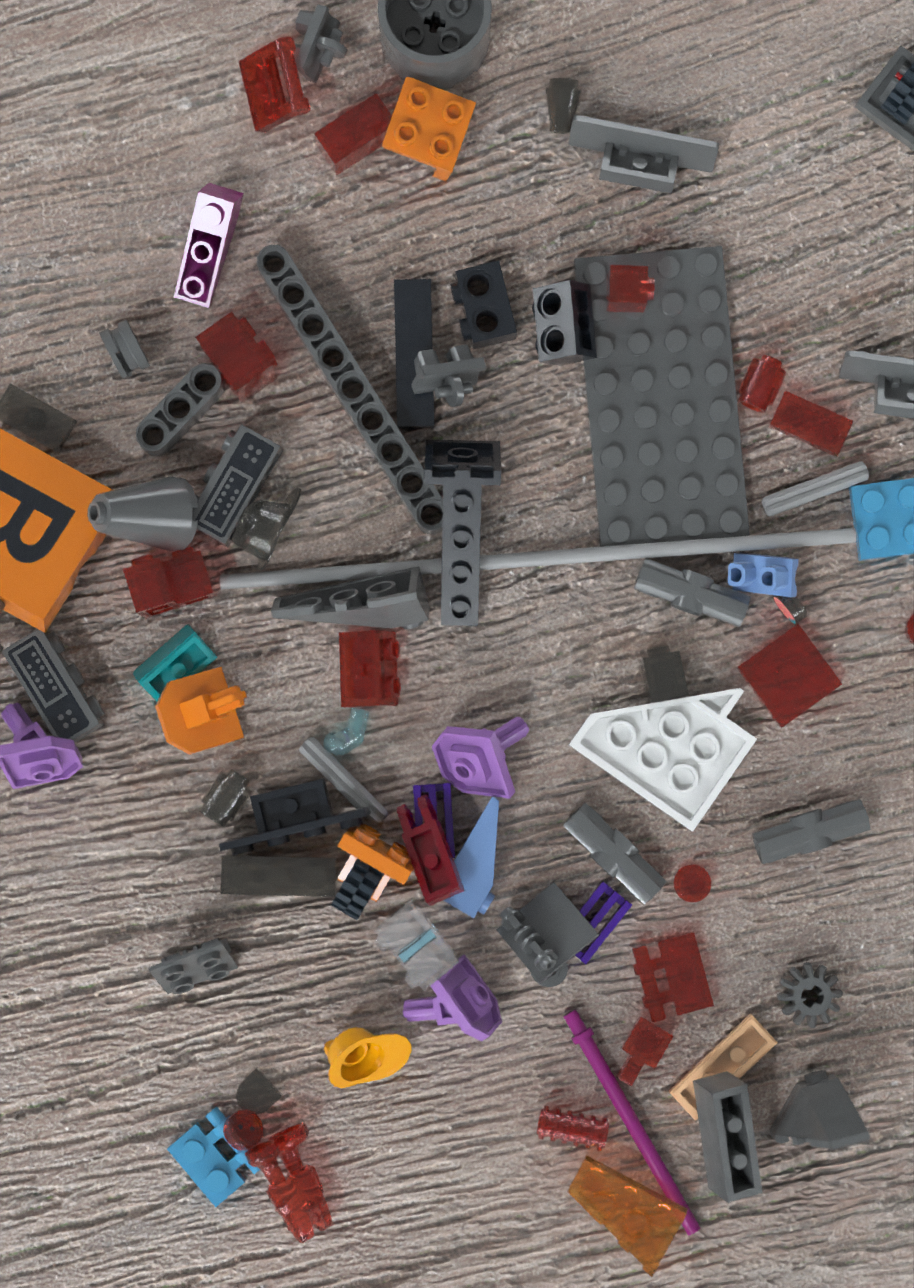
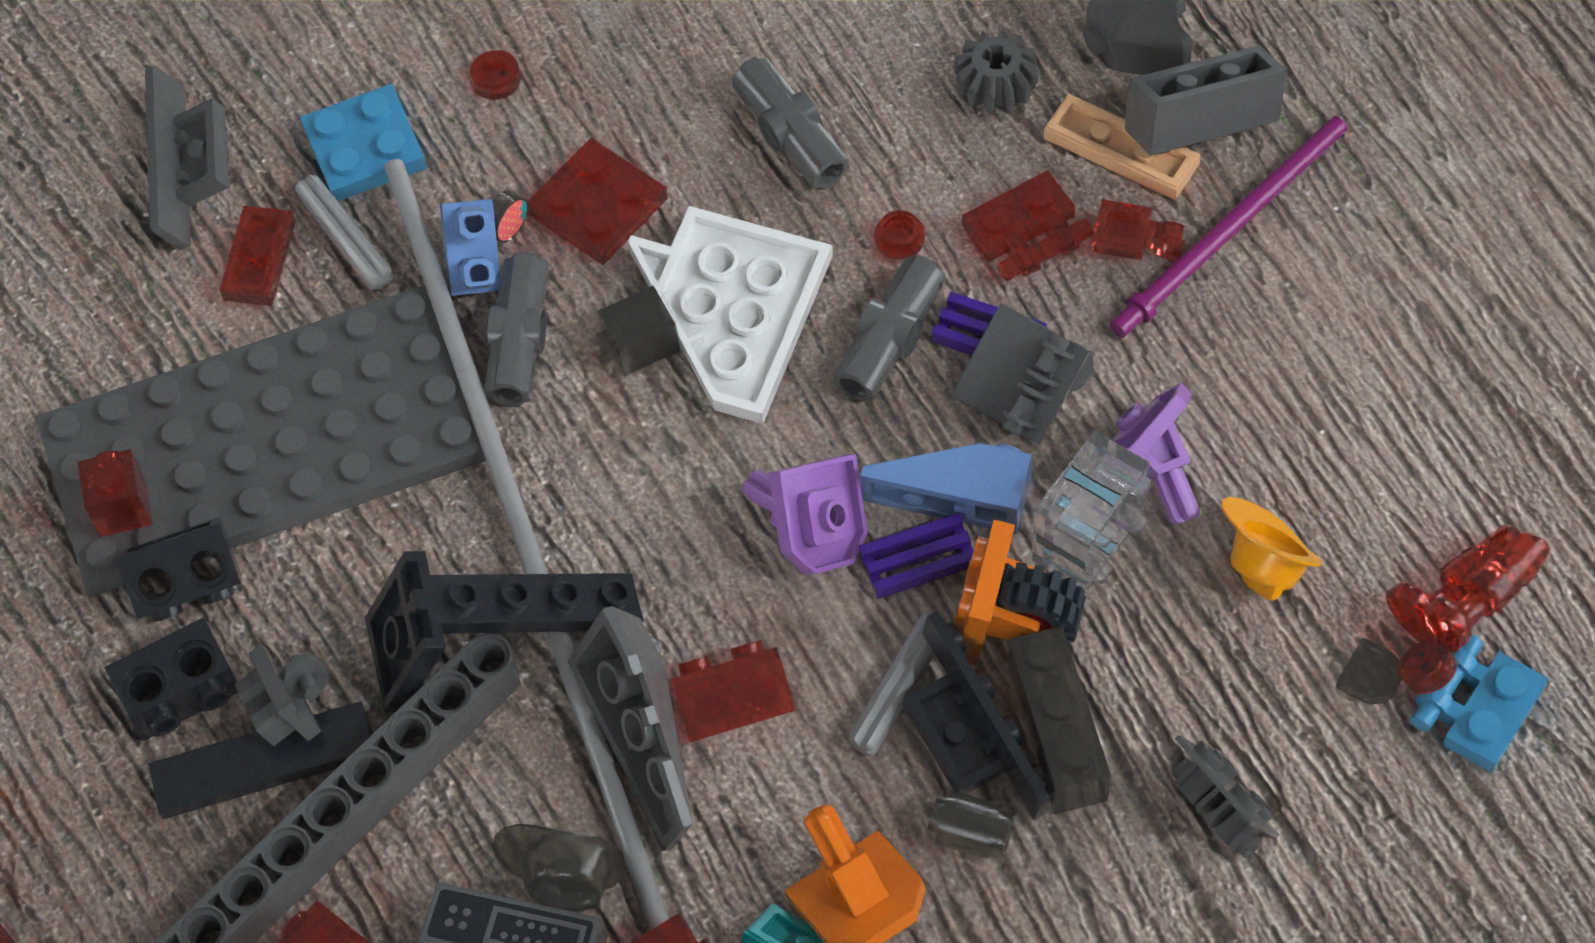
camera: 95 degrees left, 25 degrees down
(351, 736) = (830, 688): clear light blue arm -> none
(430, 853) = (955, 525): dark red hinge -> none
(573, 1128) = (1264, 282): clear red piece -> none
(630, 1211) = (1343, 193): clear orange wing -> none
(761, 383) = (216, 321): clear red brick -> none

